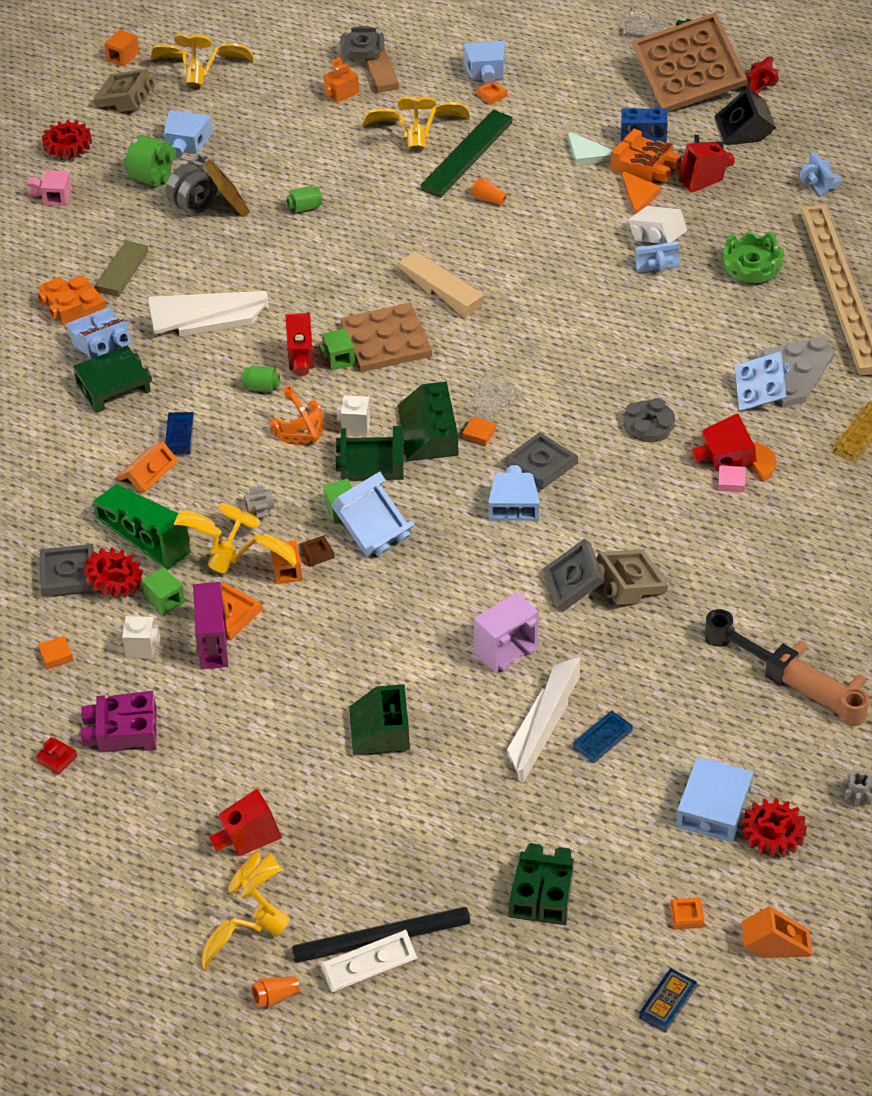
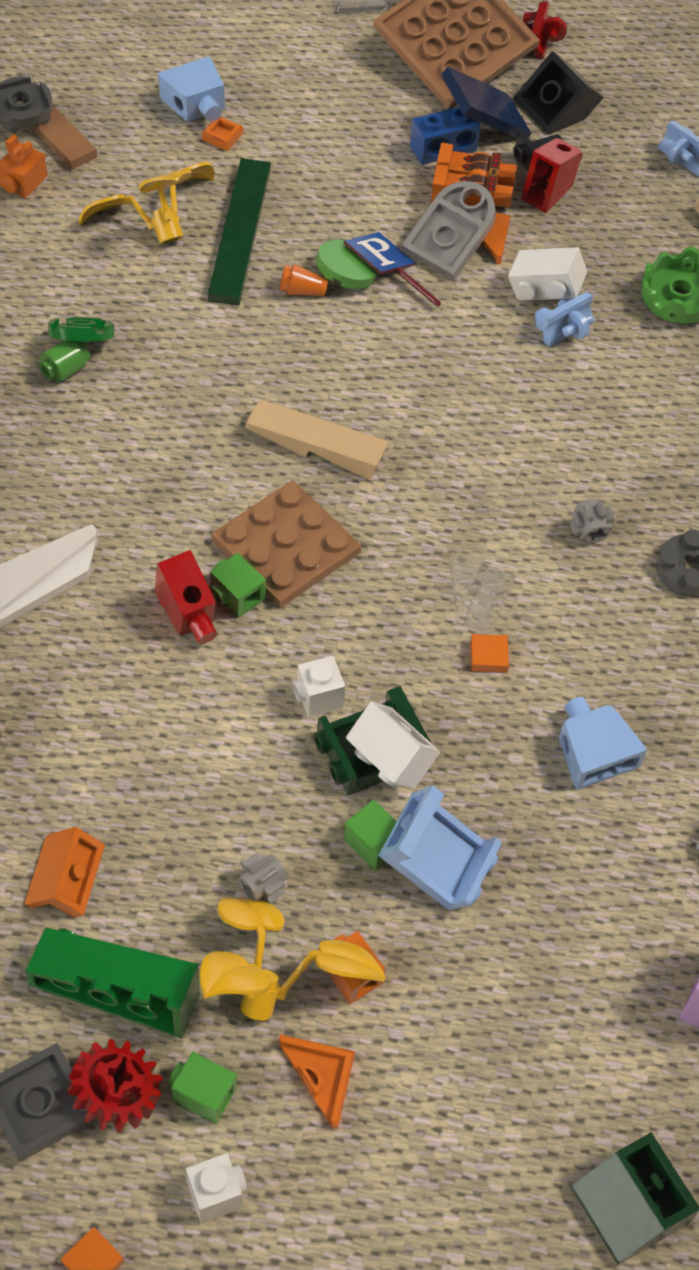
camera: 30 degrees left, 10 degrees up
(180, 432) = (84, 796): clear blue plate -> none
(210, 625) = (315, 1129): magenta window -> none
(260, 378) = (155, 667): bright green brick -> none
(287, 430) = (265, 722): orange helmet -> none
(317, 550) = (380, 927): reddish brown tile -> none
(323, 183) = (81, 329): none -> green tile
(376, 452) = (392, 746): none -> white brick
(428, 423) = (425, 660): dark green slope -> none
(525, 188) = (341, 263): none -> bright green tile
(542, 459) = (597, 672): dark grey plate -> none
(555, 189) = (385, 258): none -> piece
(587, 151) = (391, 188): light aqua tile -> none
(593, 375) = (592, 520): none -> light grey gear
(610, 183) = (451, 229): none -> light grey tile
(681, 111) = (485, 103): none -> dark blue tile

